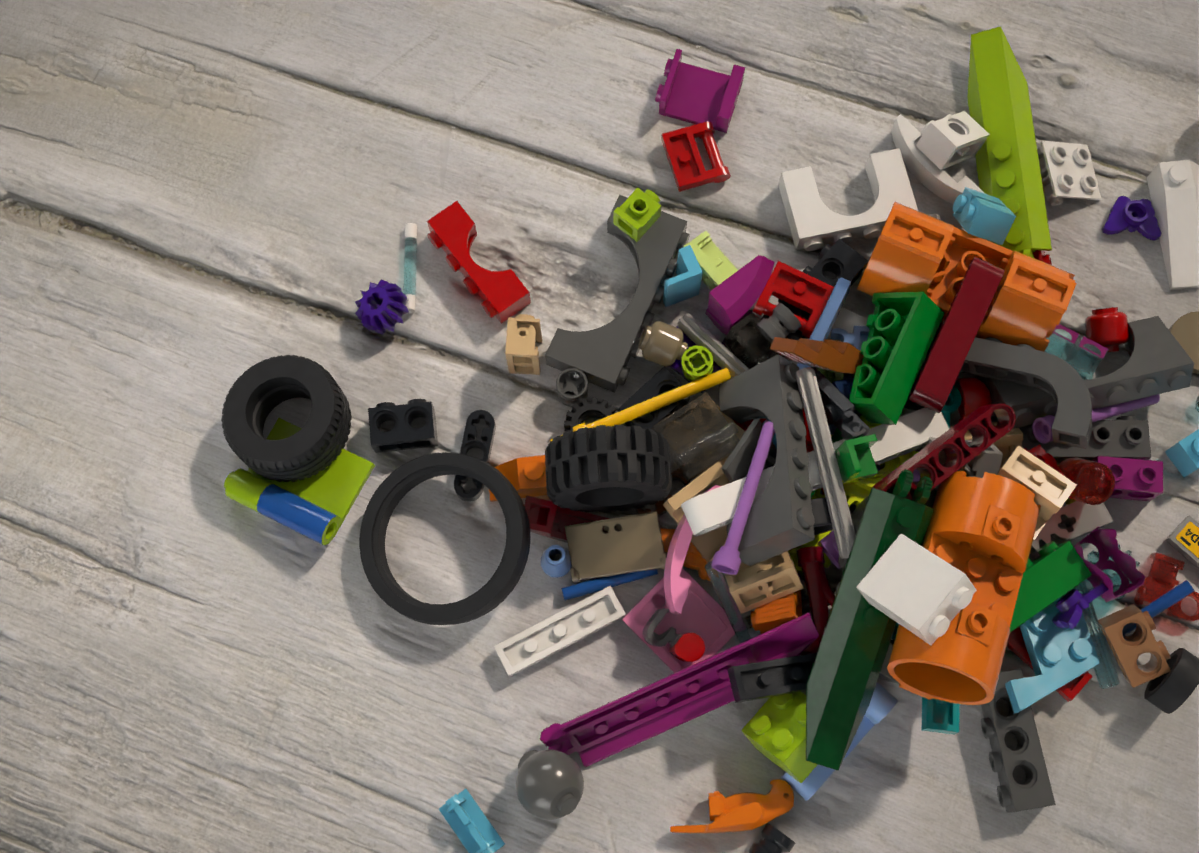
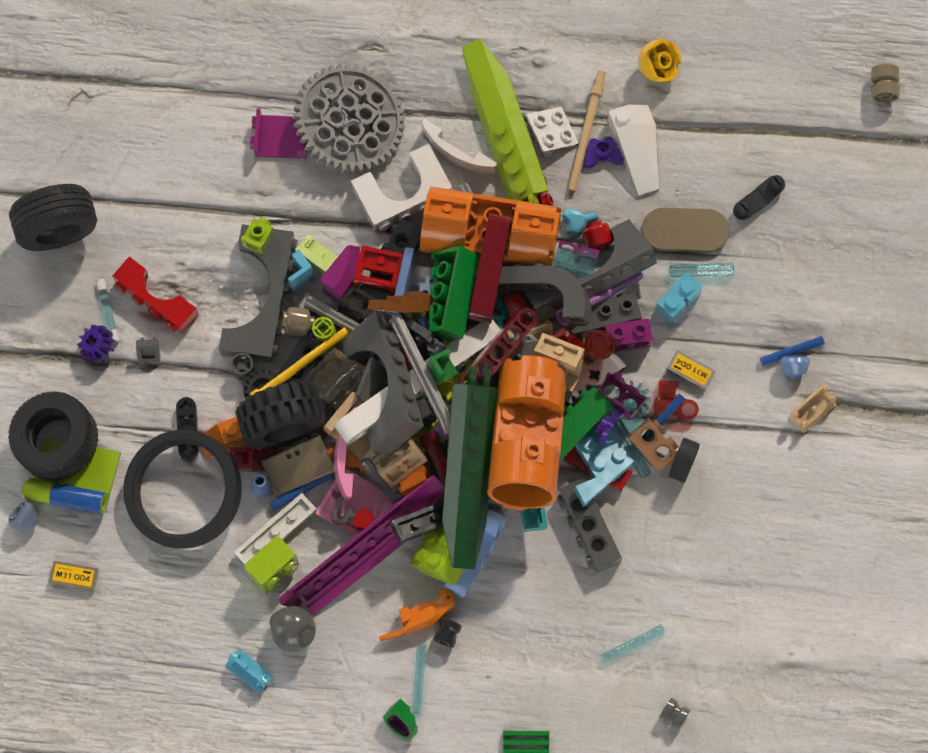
camera: 15 degrees left, 0 degrees up
(216, 521) = (23, 517): none -> sand blue cone
(263, 621) = (73, 576): none -> tile
(366, 121) = (52, 217): none -> black tyre
(402, 435) = (135, 427): black brick -> none
(449, 333) = (148, 350): none -> dark grey tile
(521, 345) = (200, 345): tan hinge -> none
(542, 681) = (271, 565): none -> lime brick
(686, 159) = (282, 186): red plate -> none
(727, 558) = (371, 452): medium lavender piece -> none
(749, 82) = (342, 83): none -> light grey gear
(779, 323) = (367, 293): dark grey wheel -> none
(917, 589) = (491, 440): white brick -> none
(951, 139) = (463, 128): white brick -> none
(983, 215) = (494, 179): medium azure piece -> none
(1083, 302) = (576, 221): none -> medium azure rock
(1139, 138) = (596, 92): none -> tan bar

